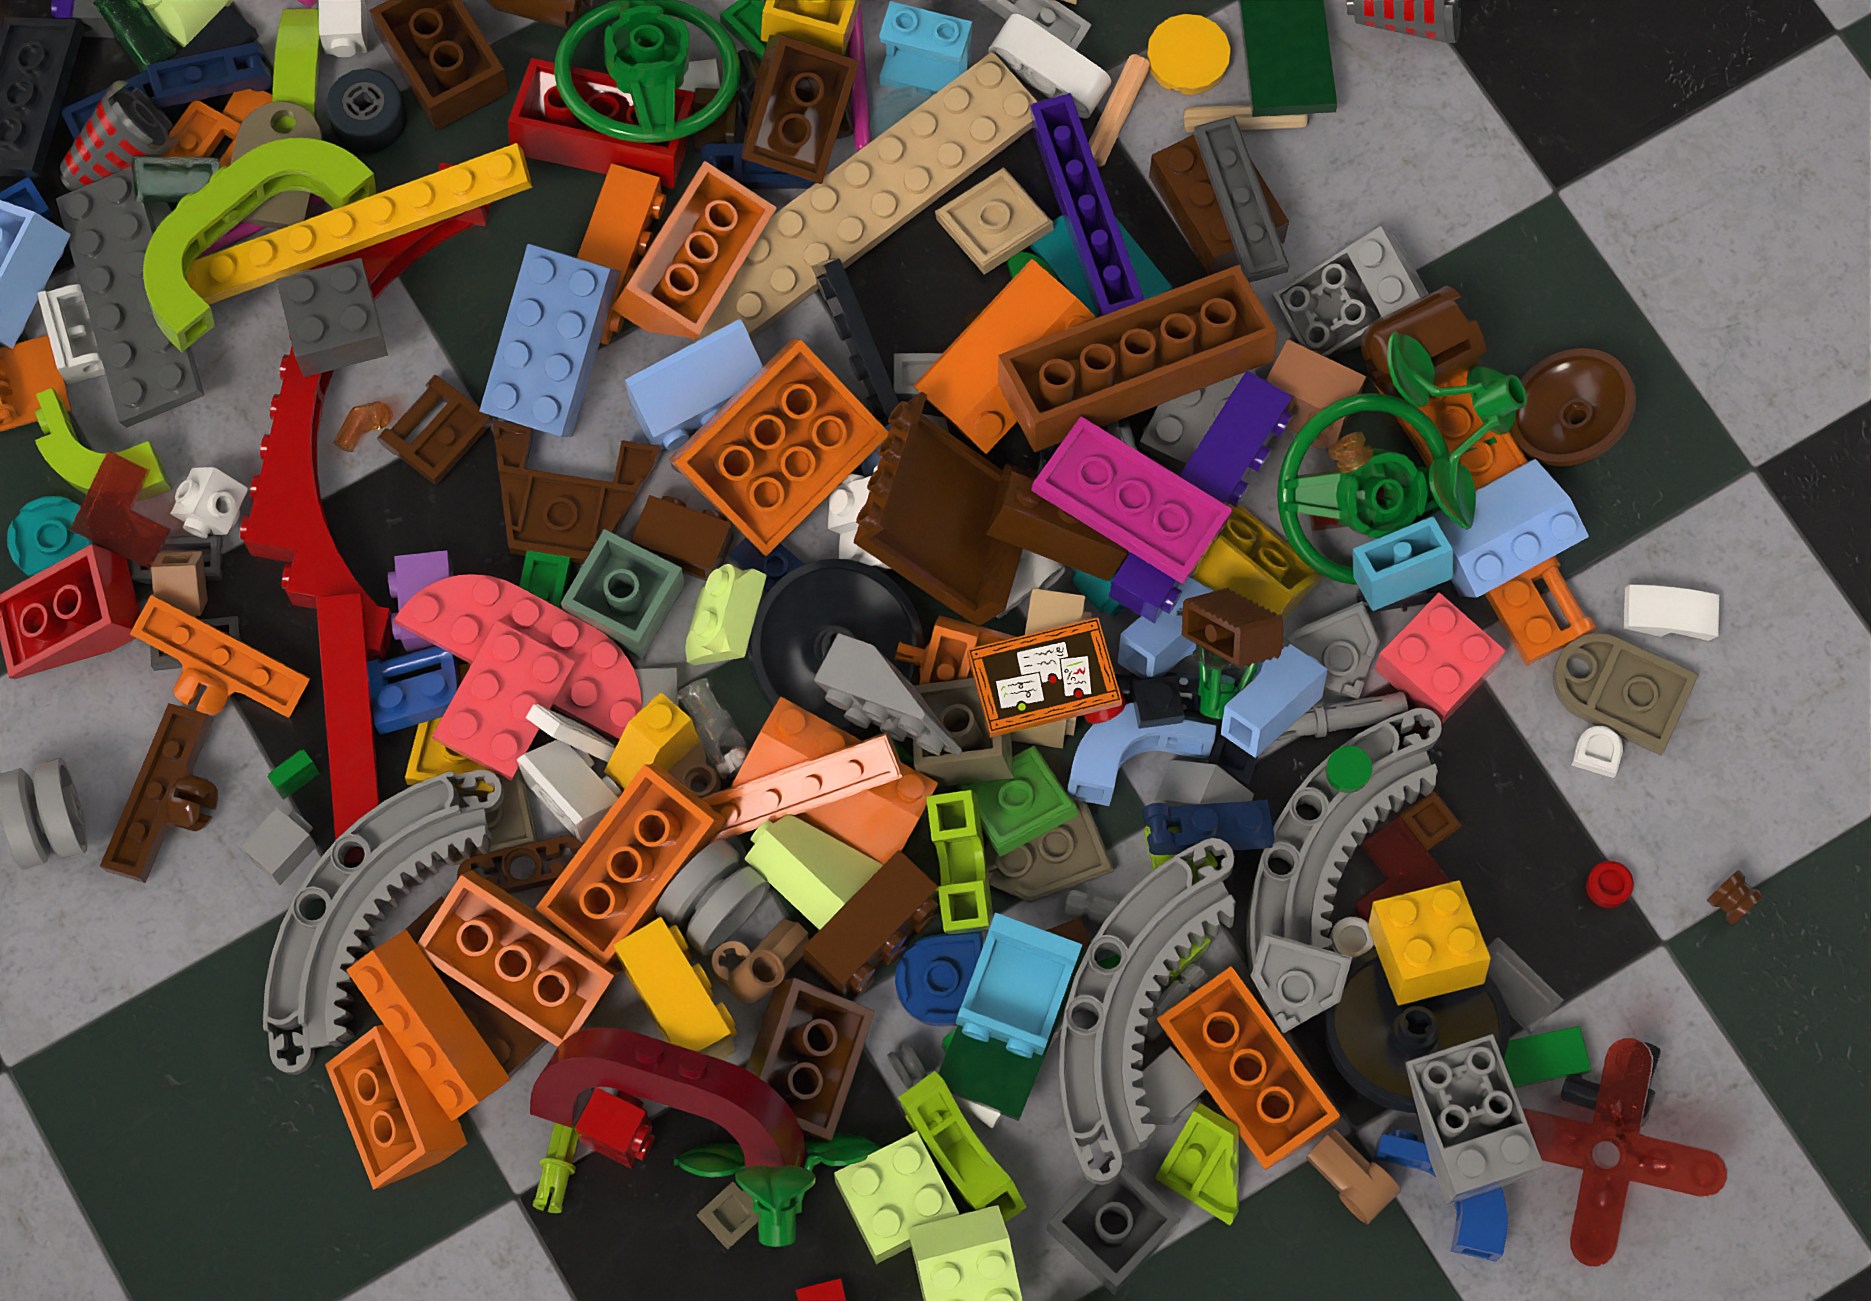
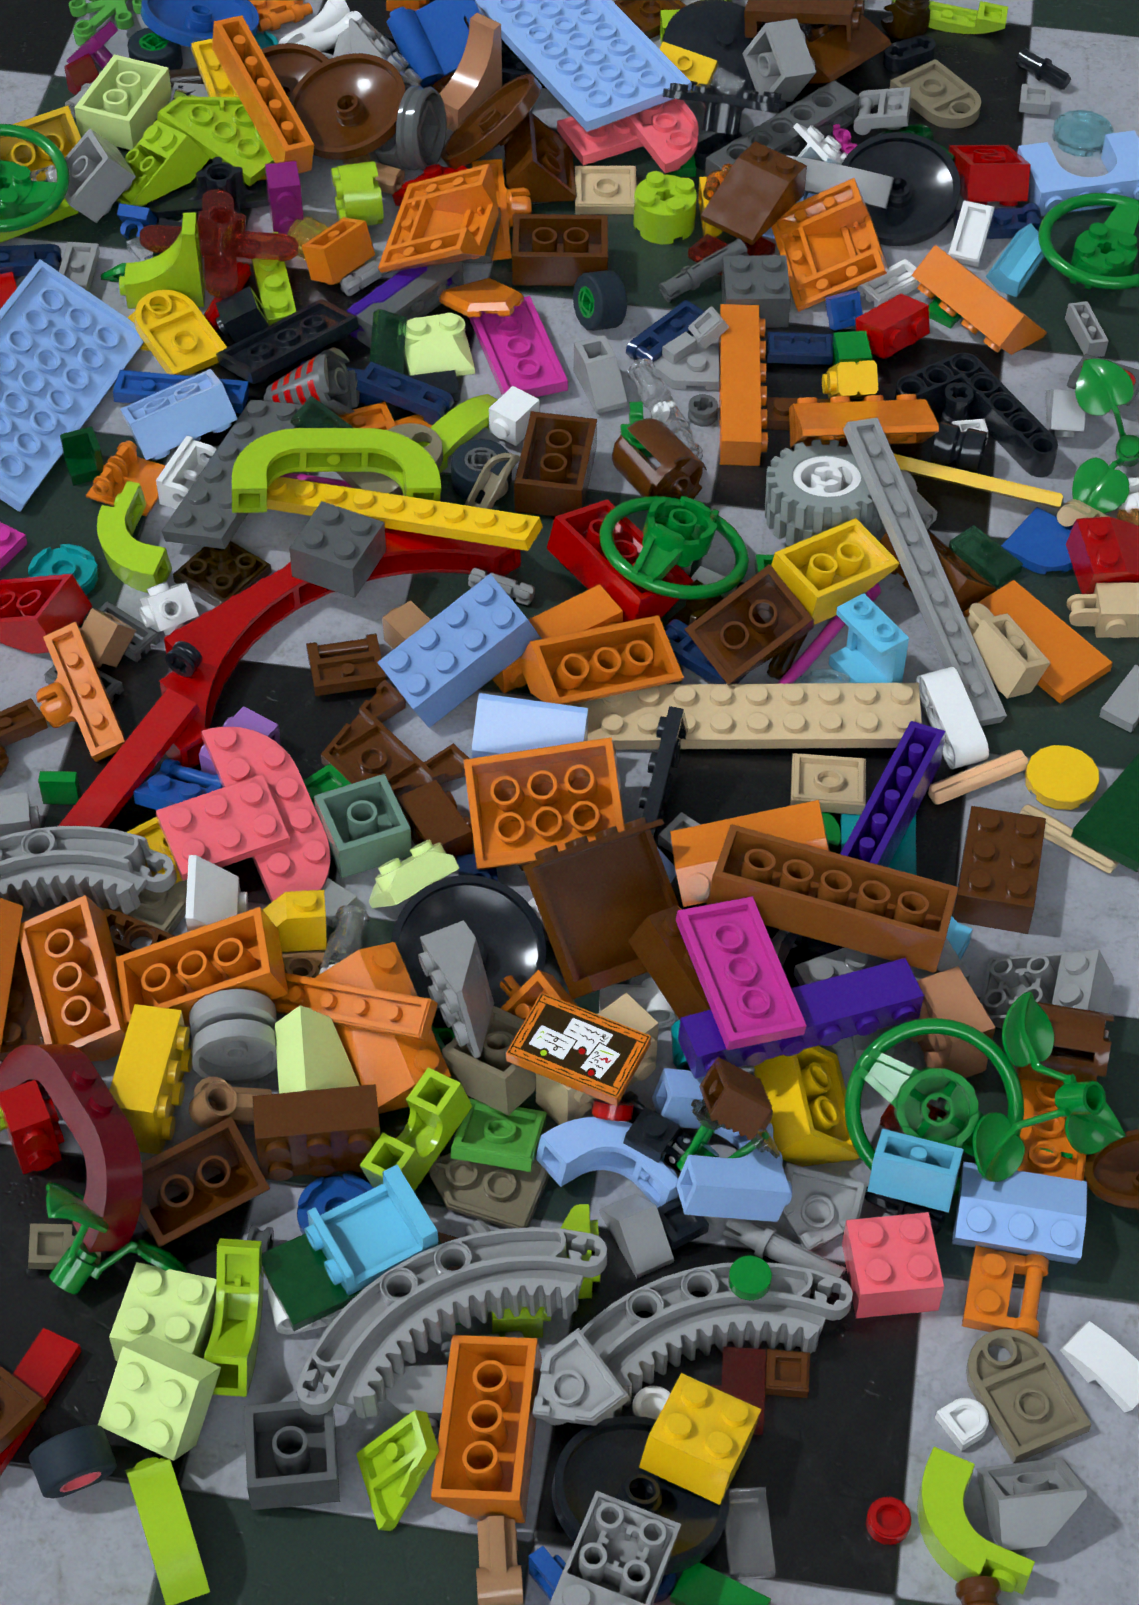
camera: 40 degrees right, 20 degrees down
(108, 513) = (103, 568): clear red tile -> none
(217, 424) = (221, 573): none -> dark brown tile
(296, 553) = (183, 658): none -> black bush
(362, 420) = (306, 630): clear orange arm -> none
(408, 125) = (490, 483): none -> dark tan piece
(465, 348) = (402, 623): none -> medium nougat brick
(502, 228) = (523, 593): none -> light grey axle
(571, 732) = (244, 873): white tile -> none
(1239, 824) = (626, 1248): dark blue plate -> none
(1241, 199) = (1007, 867): dark grey tile -> none
(1351, 452) = (933, 1057): clear orange bush -> none
(1664, 858) = (950, 1535): none -> lime arch
(1706, 780) = (1029, 1501): none -> light grey slope

